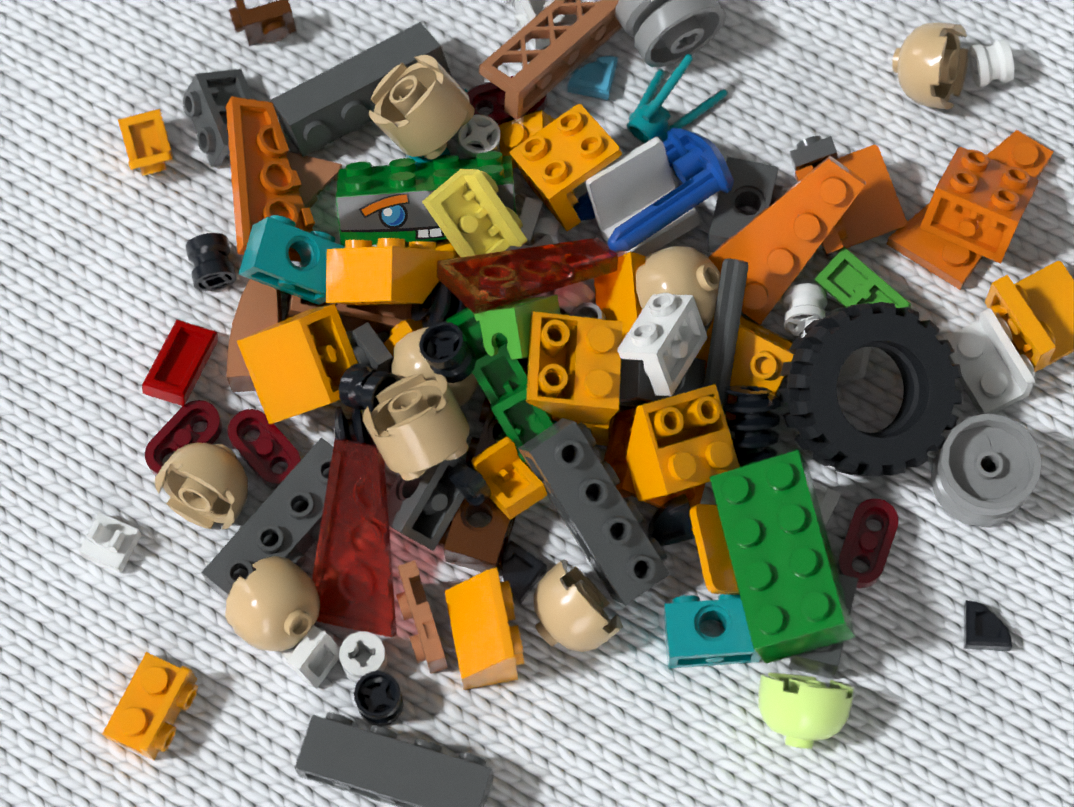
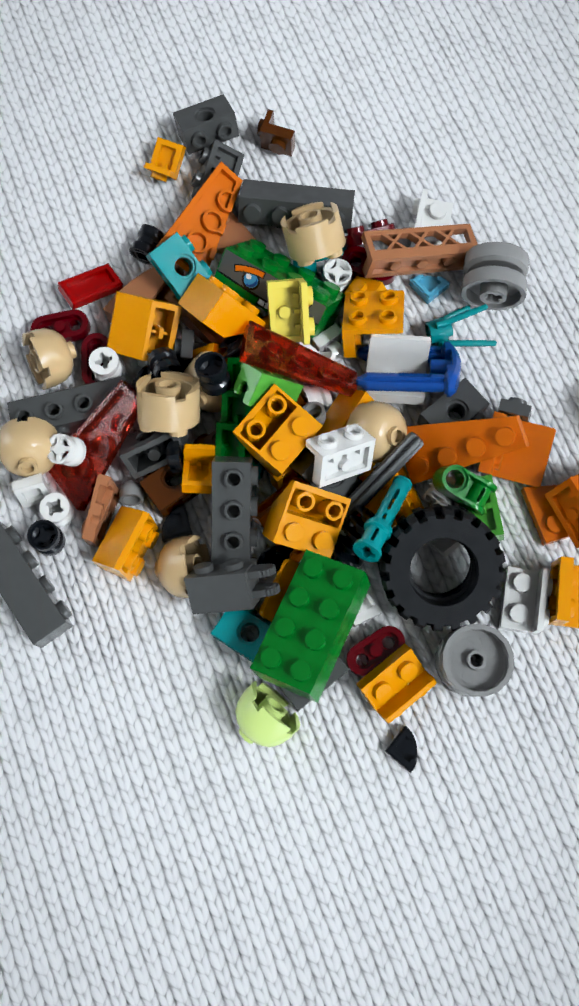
camera: 35 degrees right, 5 degrees up
(163, 62) = (206, 122): none -> dark grey brick
(291, 448) = (107, 370): none -> white wheel
(320, 575) = (61, 444): none -> white wheel
(437, 573) = (131, 493): none -> light grey hinge
(467, 70) = (354, 234): none -> dark red plate
(652, 583) = (228, 585): none -> dark grey hinge
(759, 340) = (375, 539): none -> teal pin
(835, 282) = (469, 489): none -> green piece
(920, 561) = (396, 683): none -> light orange bracket

